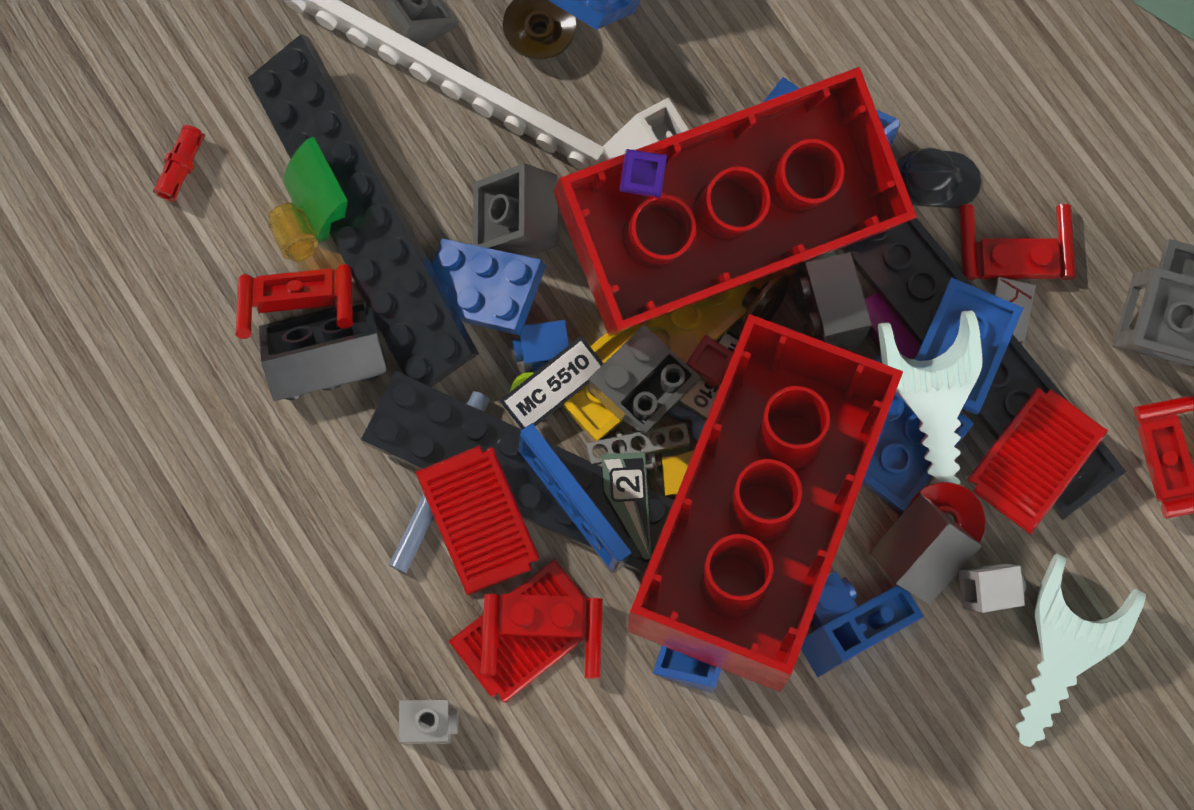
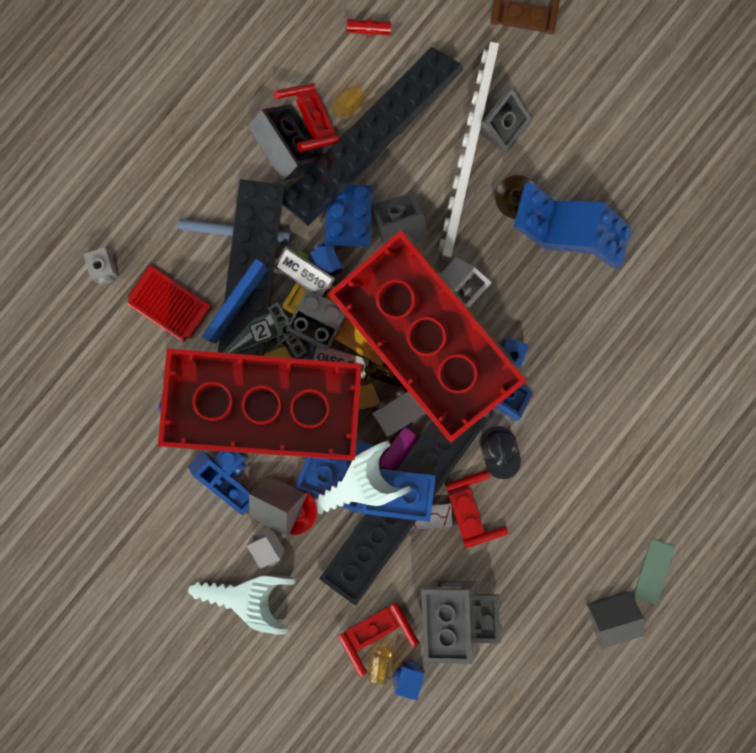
camera: 65 degrees right, 10 degrees up
(315, 188) = (373, 104): green slope -> none
(478, 518) = (217, 256): red window -> none
(542, 618) = (175, 309): red plate -> none
(643, 173) = (418, 276): dark purple tile -> none
(710, 361) = (345, 353): red tile -> none
(1036, 458) = (347, 553): red window -> none

